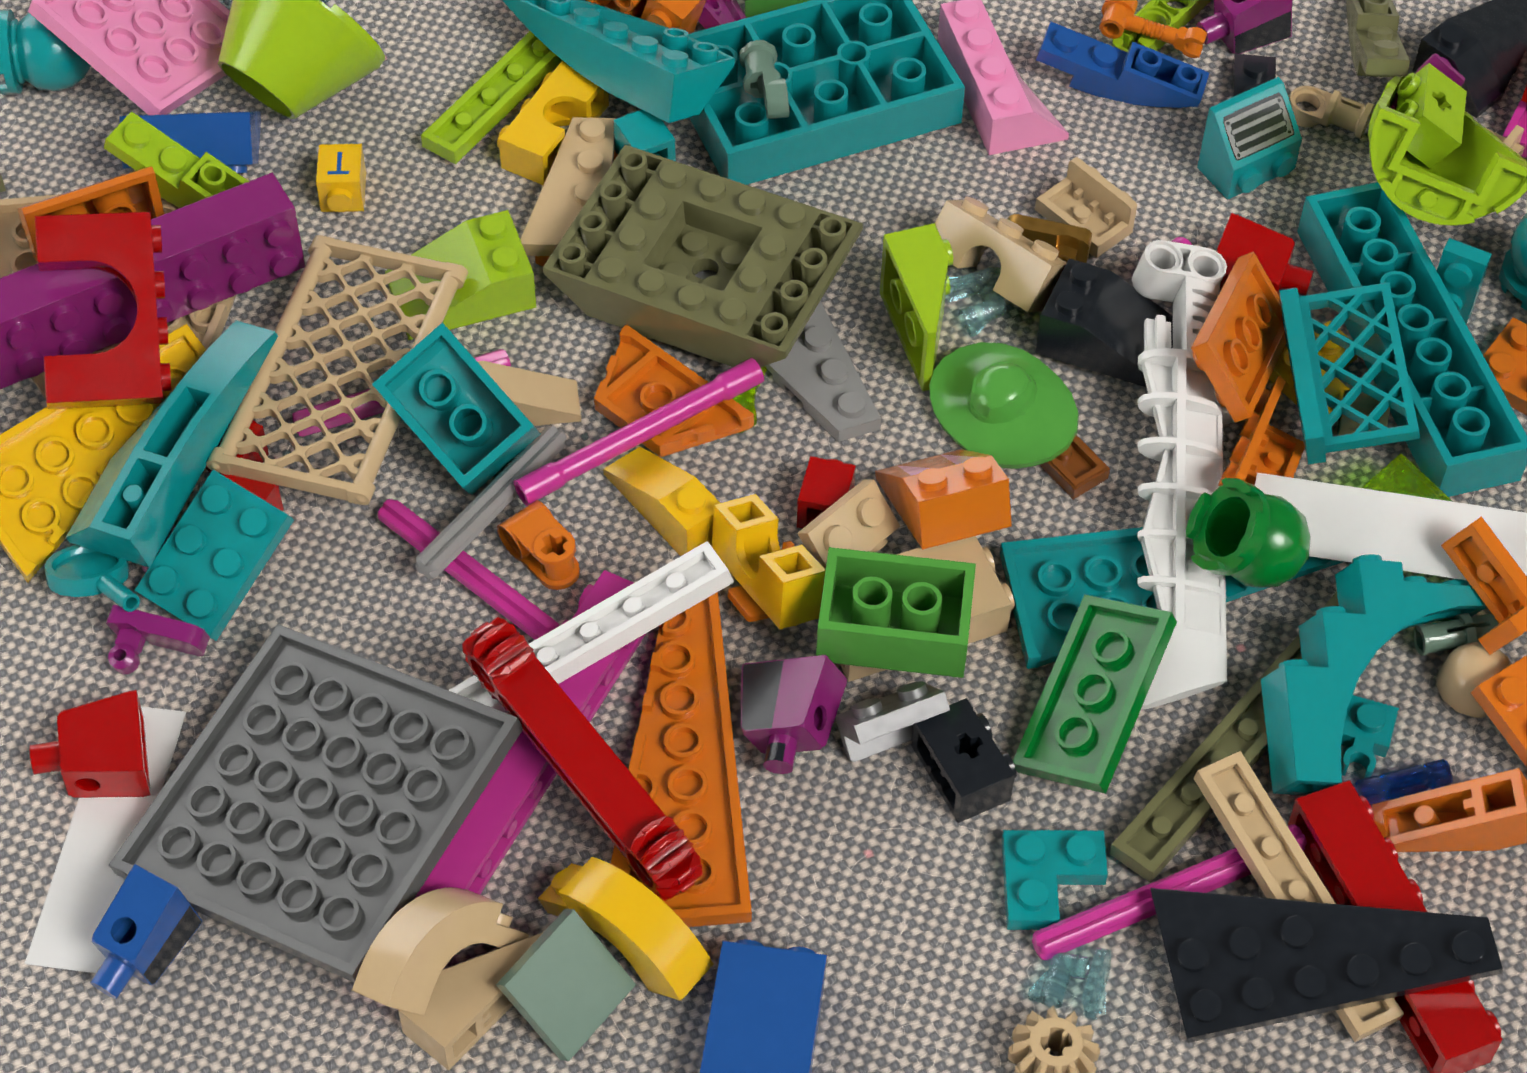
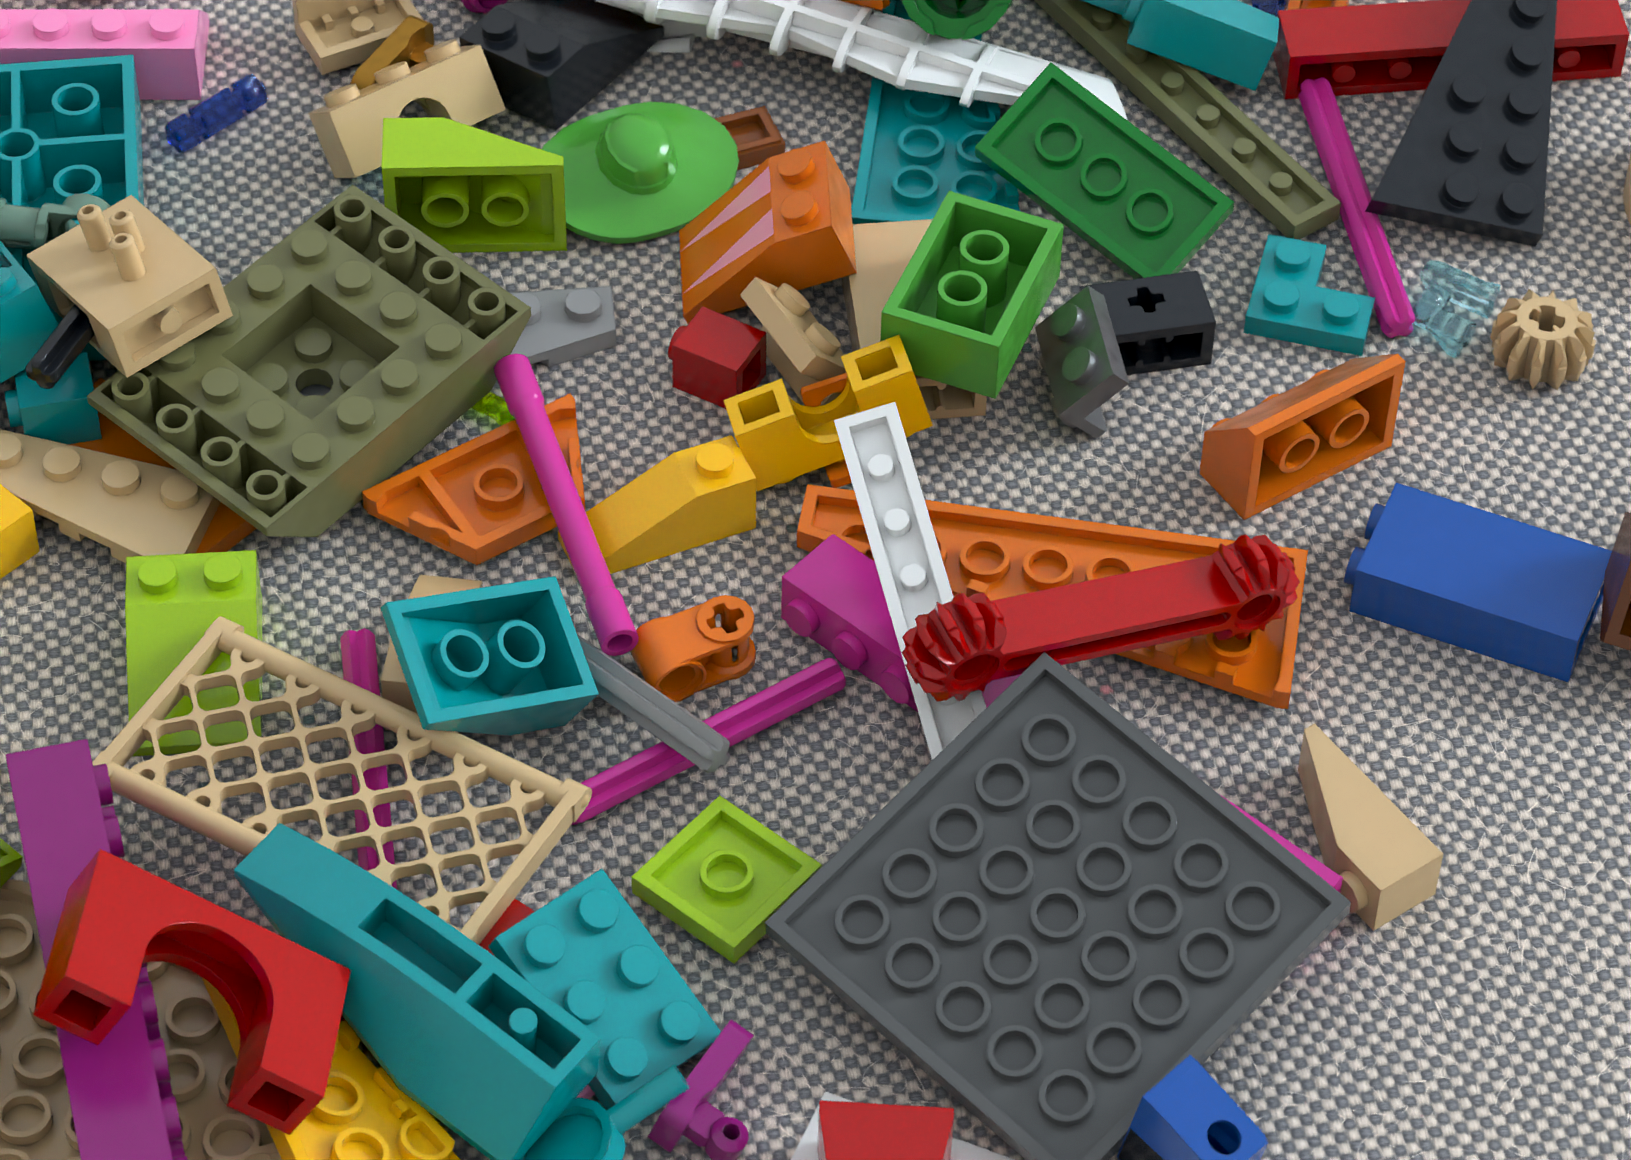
camera: 75 degrees left, 5 degrees down
(345, 605) = (723, 878): none -> lime plate
(421, 941) = (1326, 822): tan arch -> none
(566, 984) = (1376, 731): sand green tile -> none
(634, 921) = (1292, 650): yellow arch -> none
(703, 127) = (123, 289): none -> tan piece
(789, 707) = (1040, 451): magenta torso -> none
(873, 885) = (1304, 434): none -> orange slope
(969, 162) = (216, 113): none -> clear blue axle
(1277, 861) = (1344, 96): tan plate -> none

